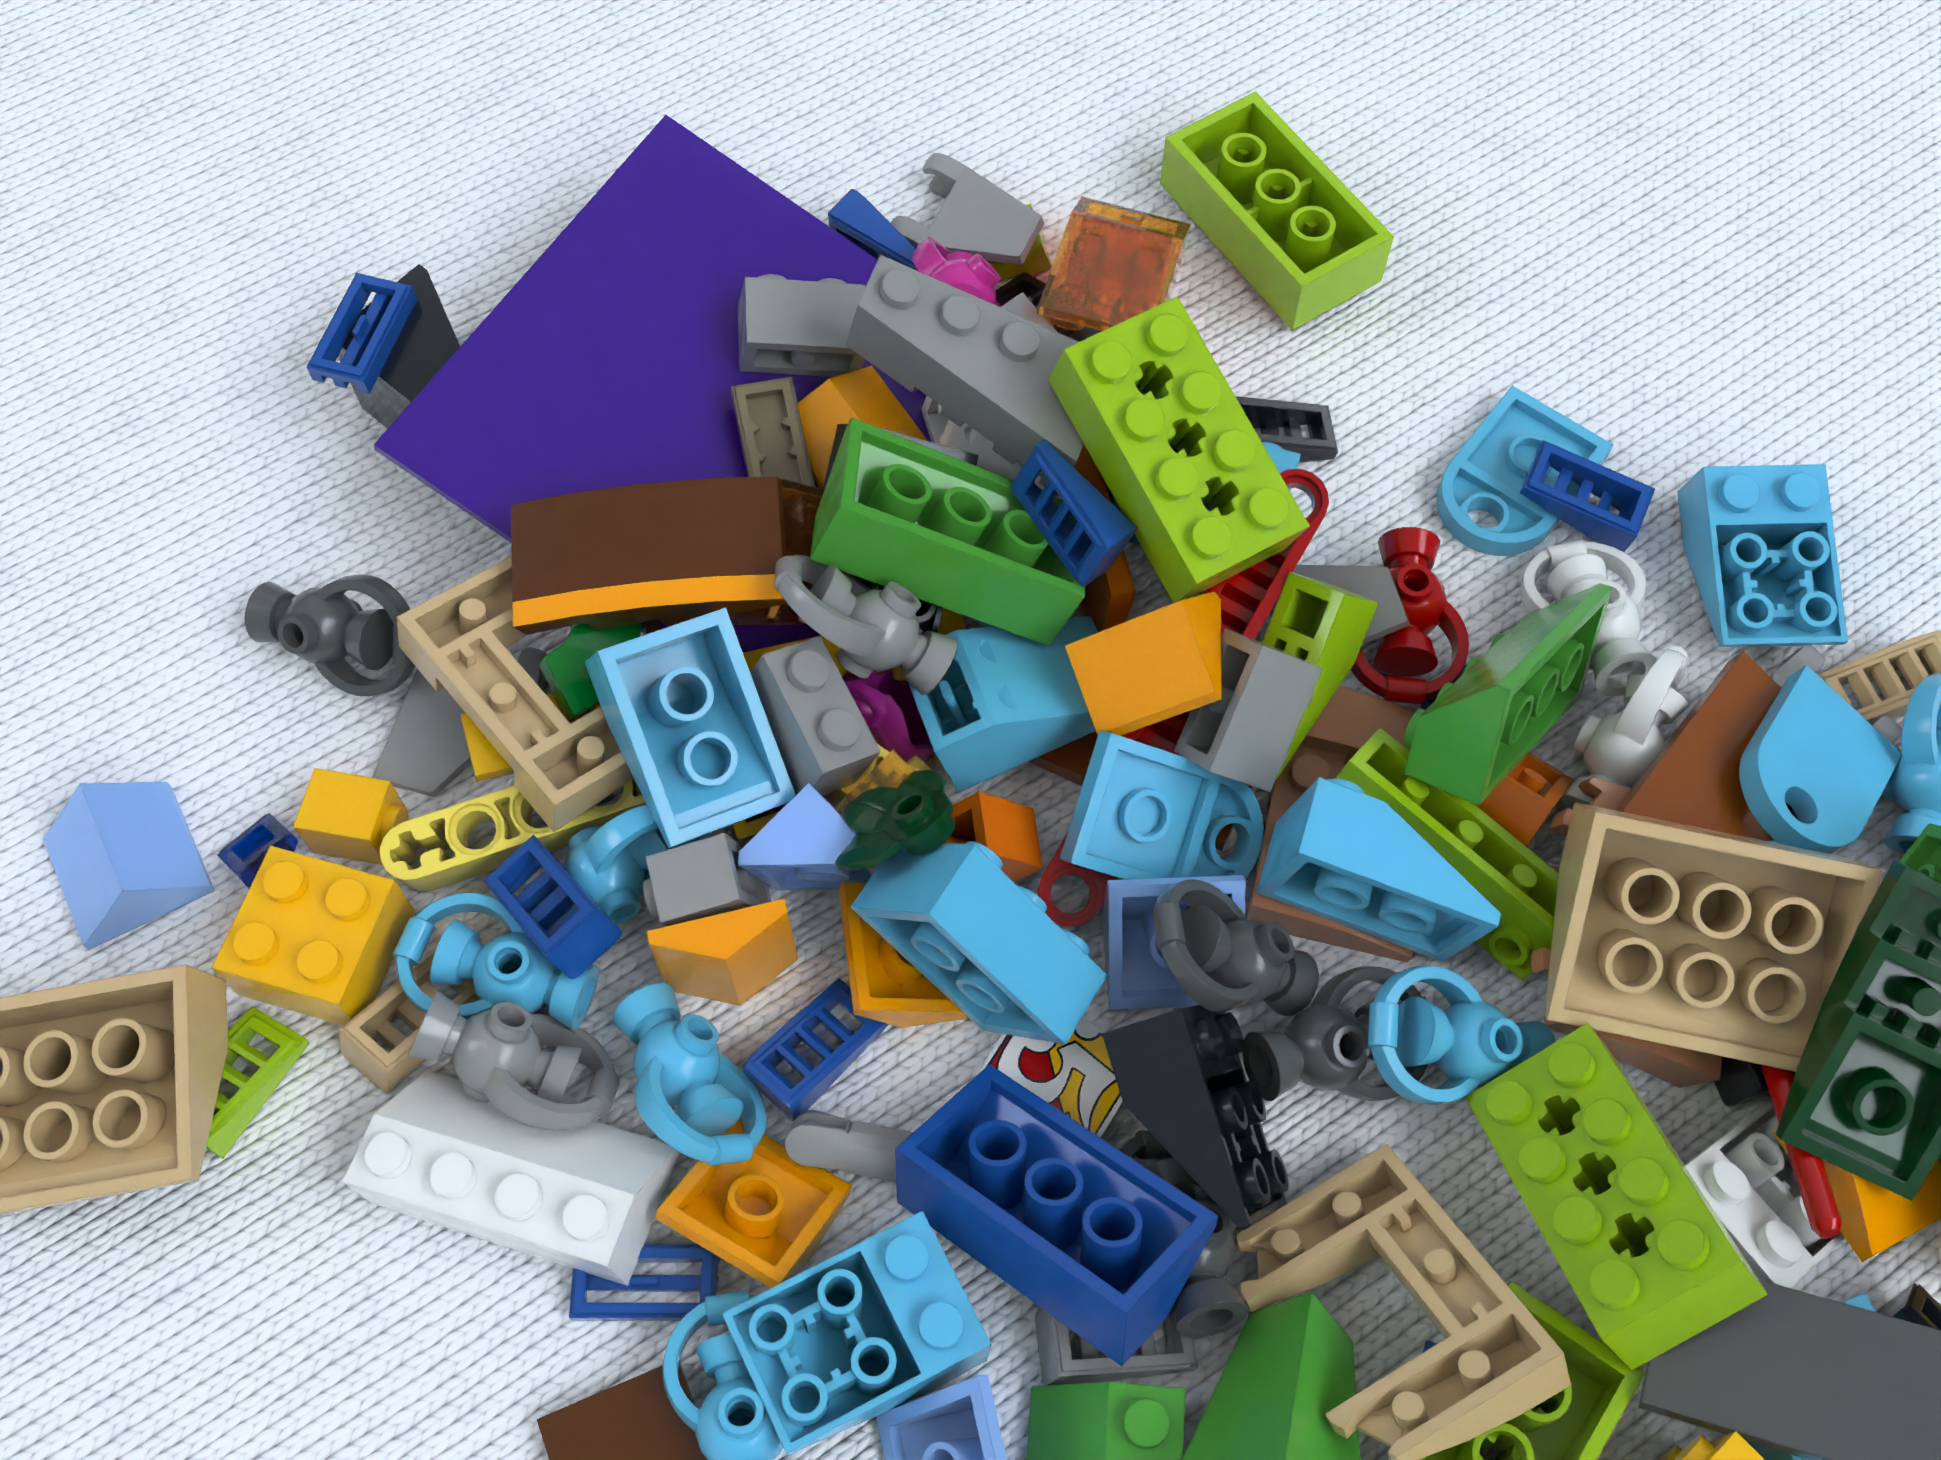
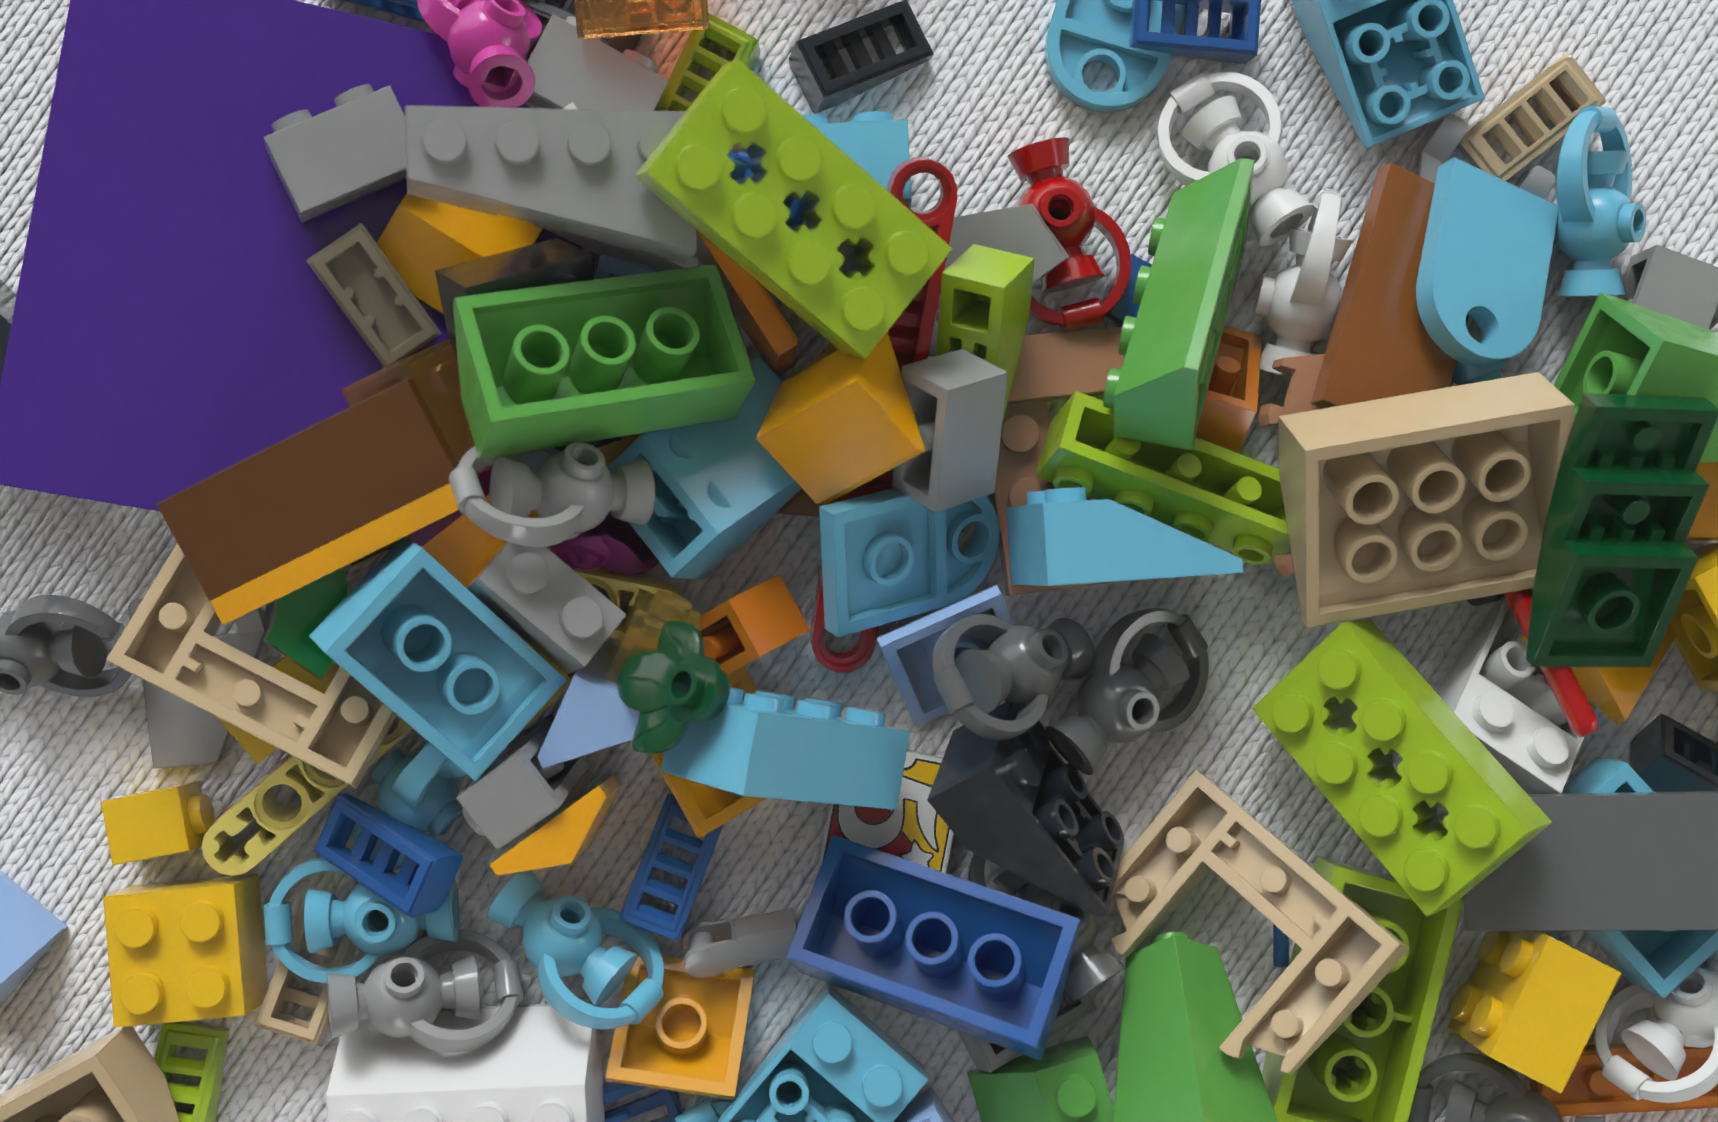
camera: 25 degrees left, 25 degrees up
(249, 849) = (85, 881): clear blue slope -> none
(1101, 529) = (712, 303): blue slope -> none
(1465, 1041) = (1238, 657): medium azure piece -> none

